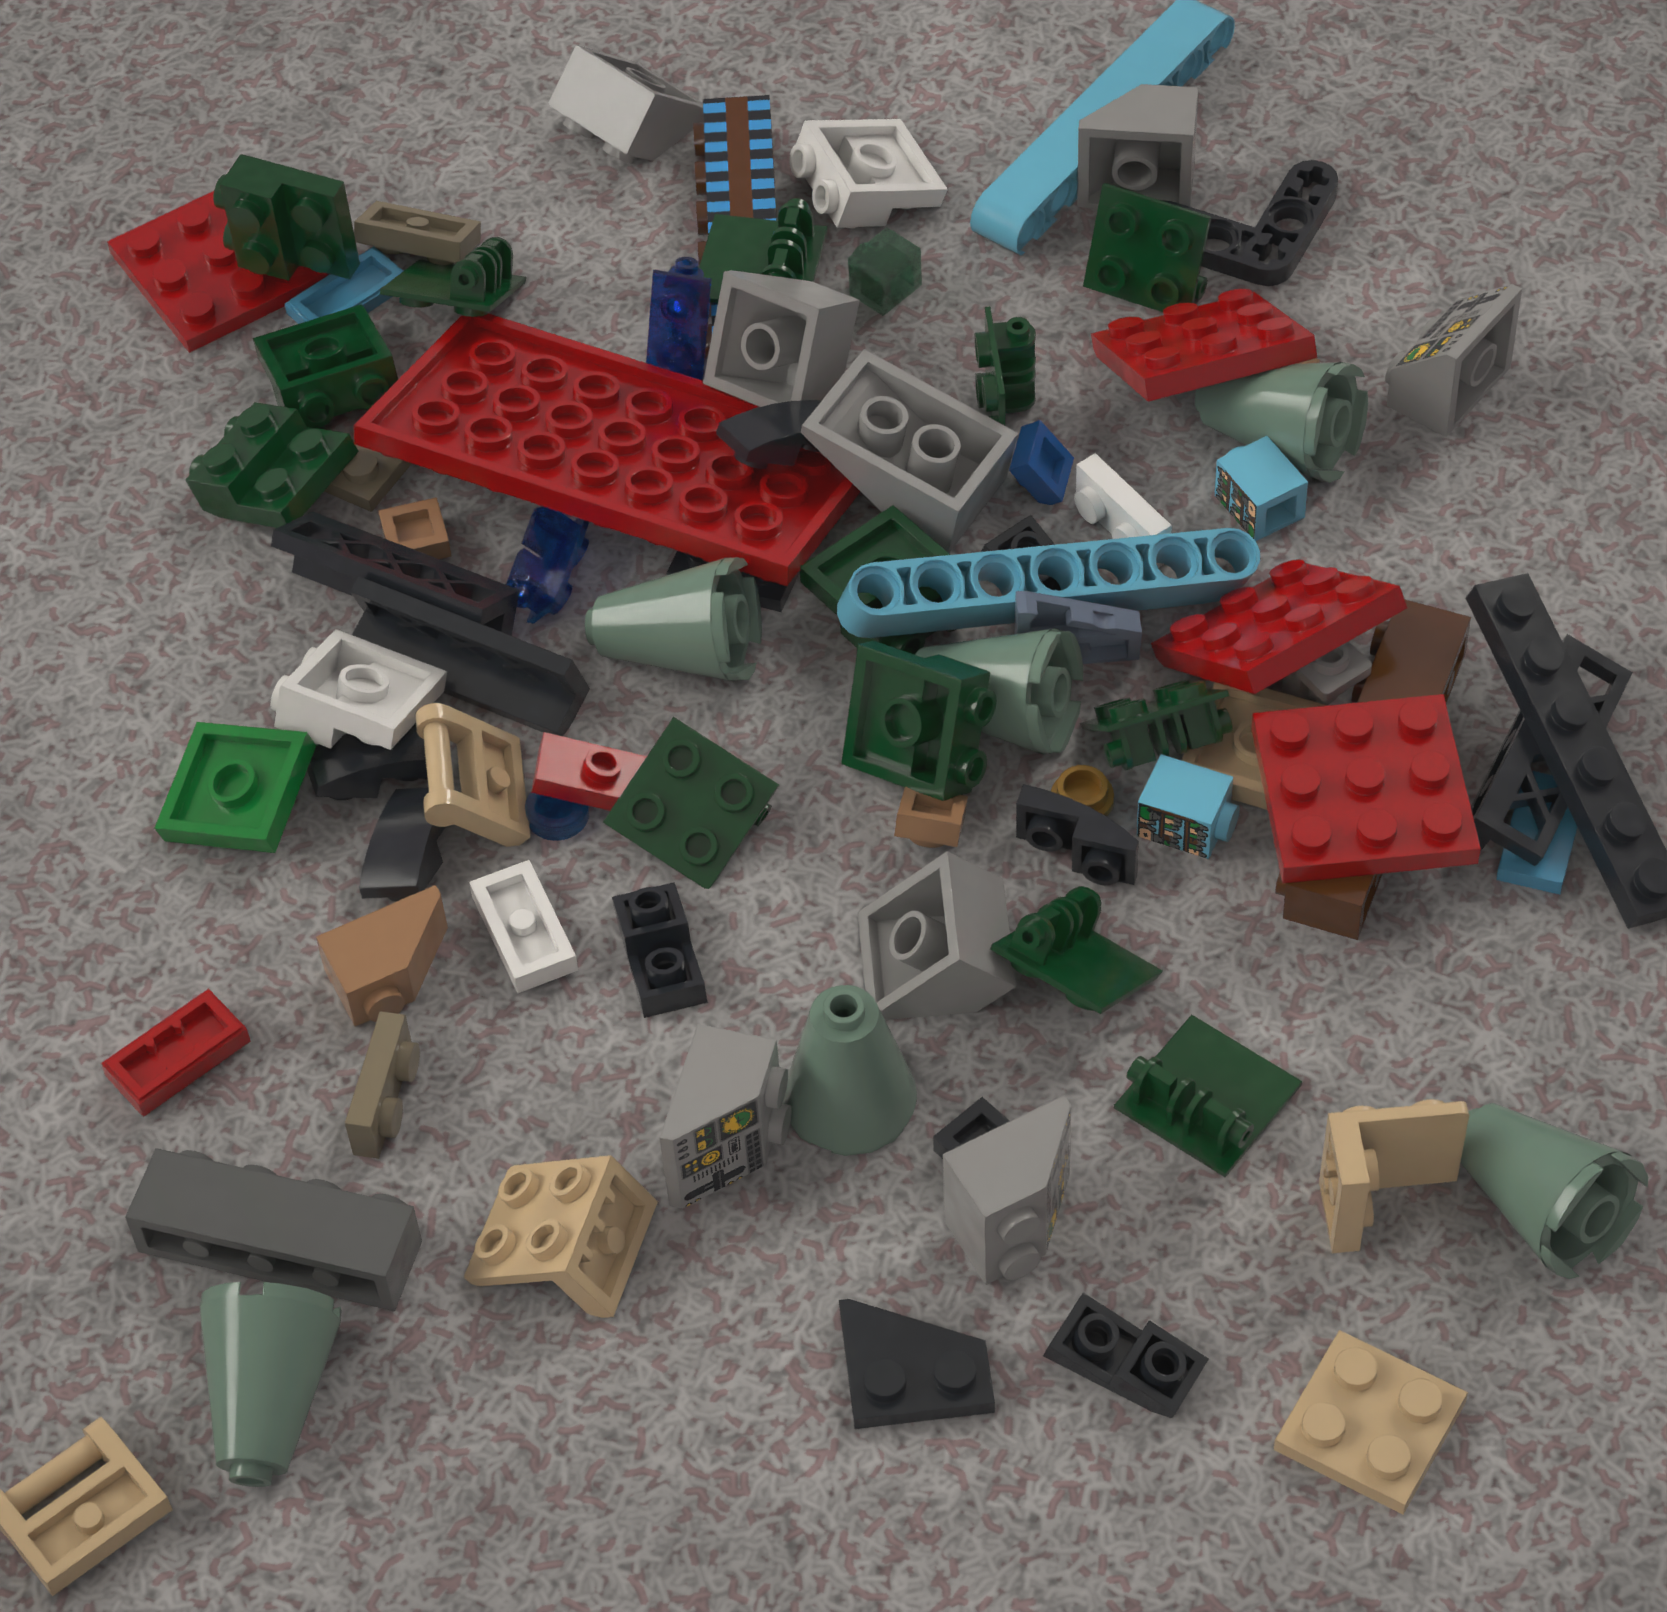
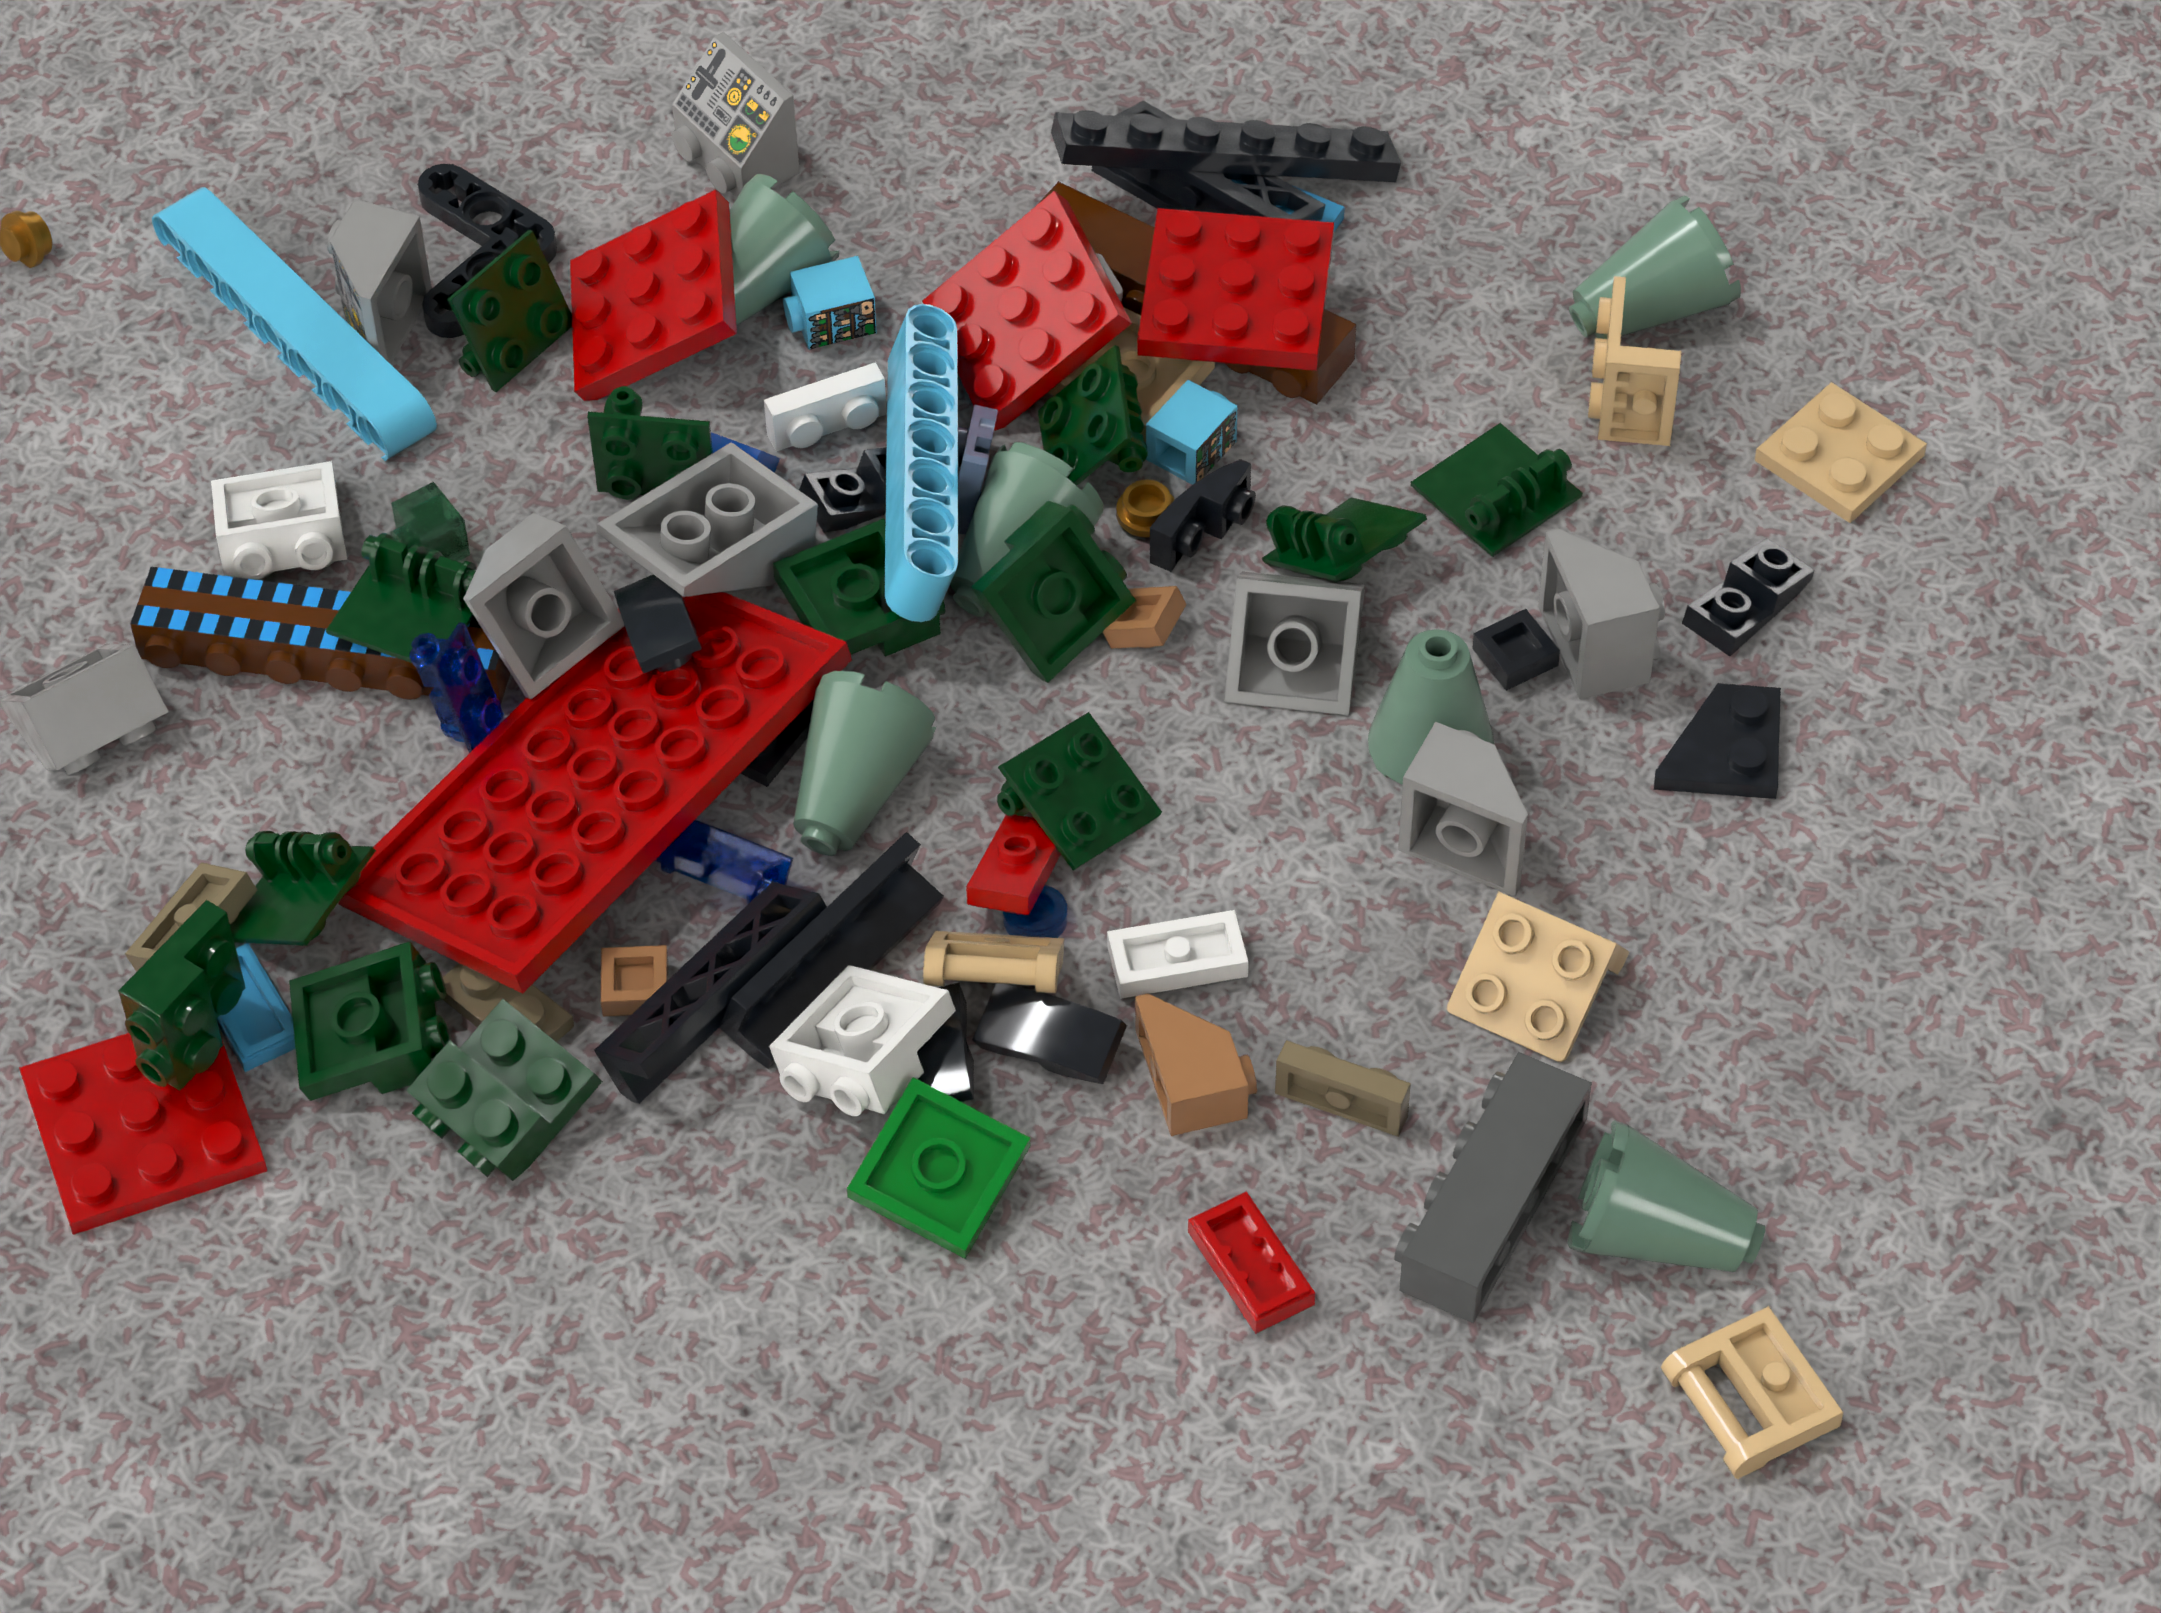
camera: 80 degrees left, 0 degrees up
(659, 949) = (1210, 856): black slope -> none

